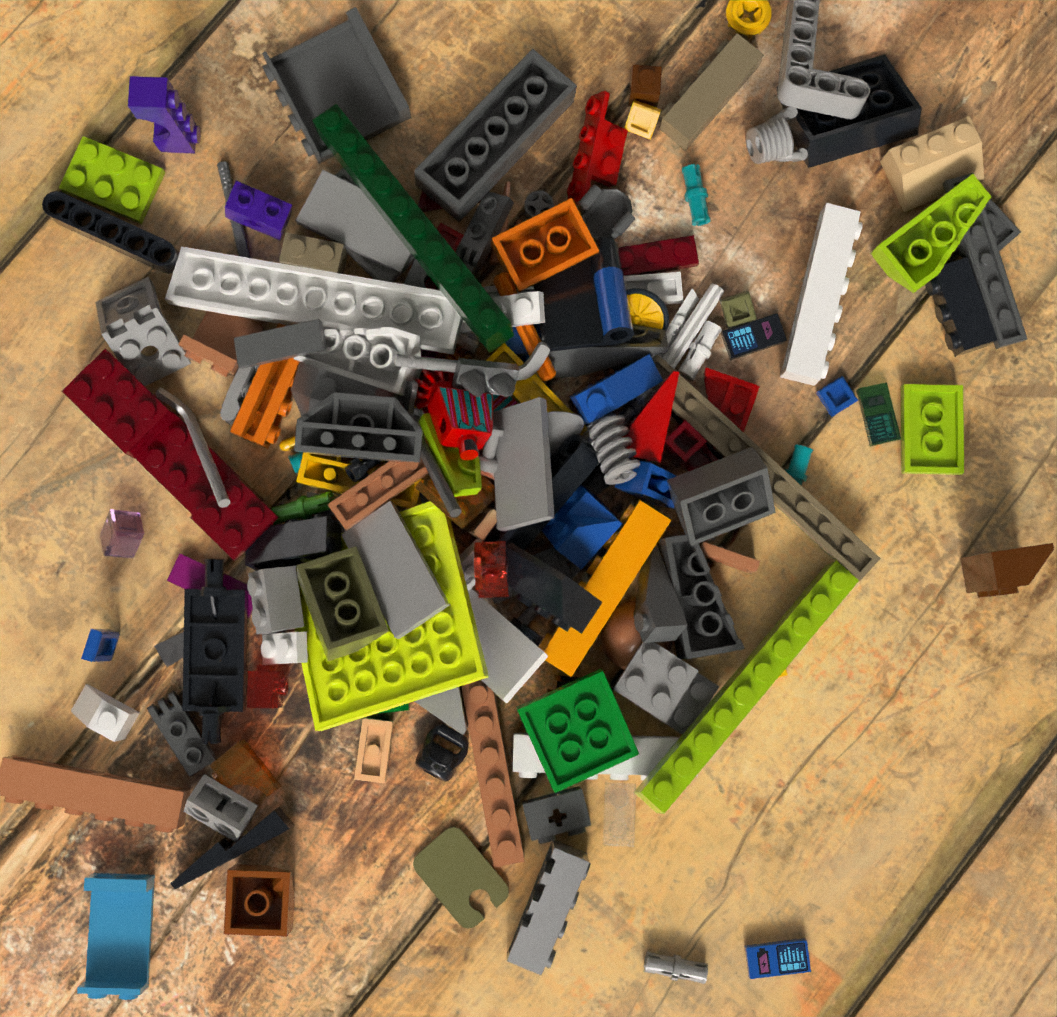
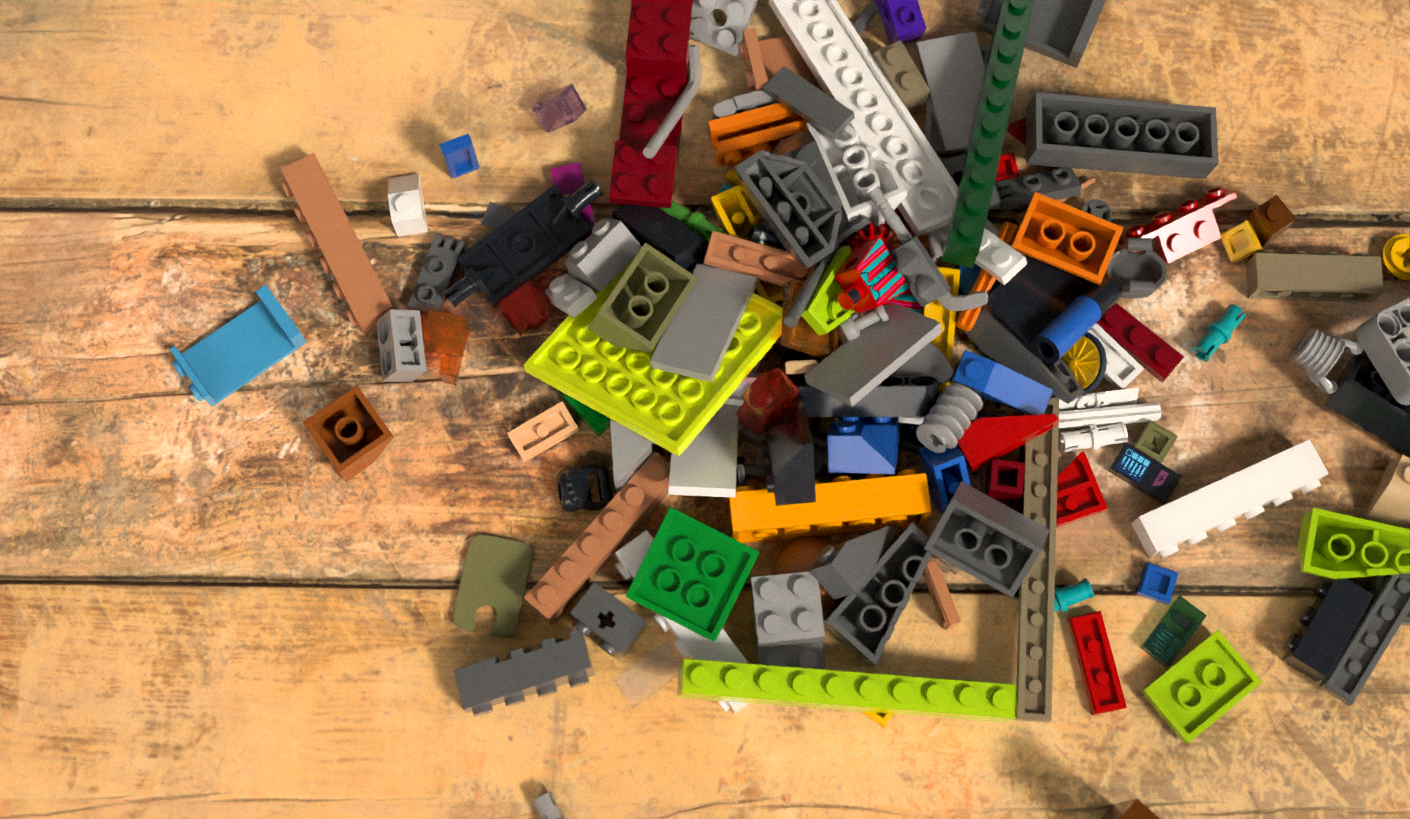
camera: 55 degrees right, 10 degrees down
(222, 851) = (411, 396): black slope -> none
(858, 486) = (1096, 663): none -> red tile

